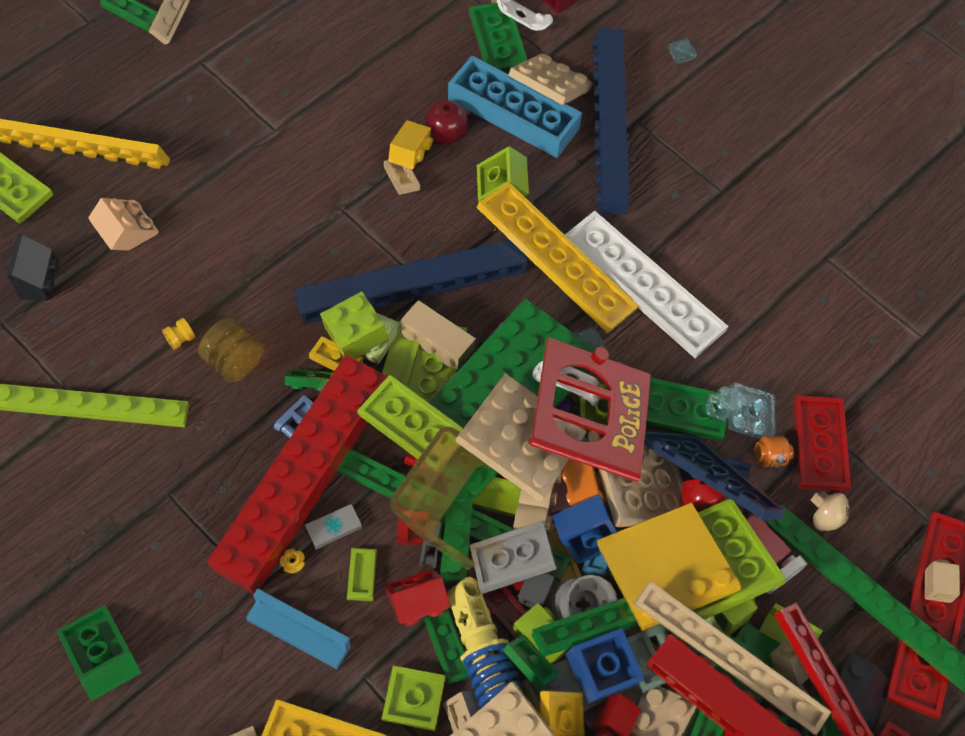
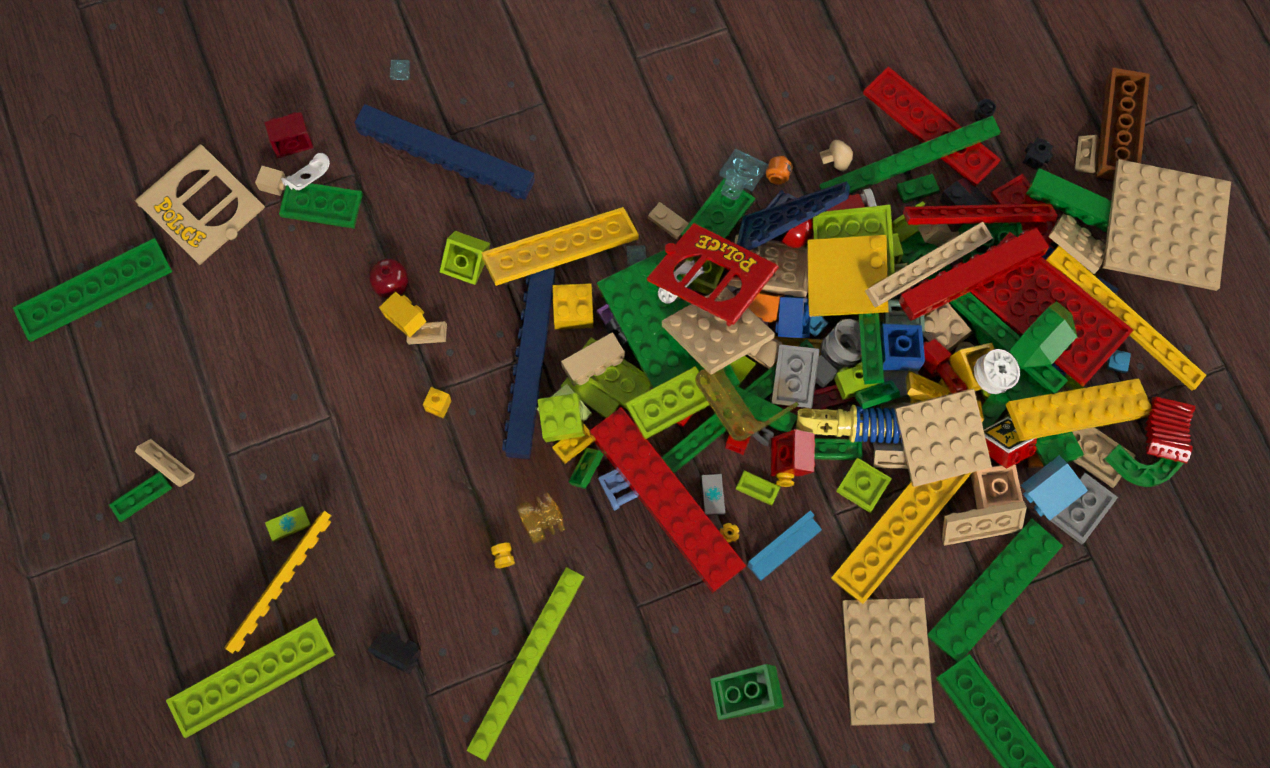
camera: 65 degrees left, 10 degrees up
(122, 223) = (376, 568): light nougat slope -> none
(144, 131) = (288, 524): none -> lime tile
(326, 211) = (437, 402): none -> yellow brick
(383, 600) = (785, 479): none -> yellow bush
(493, 296) = (573, 306): none -> yellow brick
(514, 106) = (401, 219): dark azure brick -> none
(551, 78) = (389, 180): tan plate -> none
(648, 285) = (605, 193): white plate -> none
(649, 355) = (668, 220): none -> tan plate
(821, 443) = (784, 135): red plate -> none
(842, 626) = (917, 188): none -> green plate
(942, 581) = (917, 110): tan brick -> none

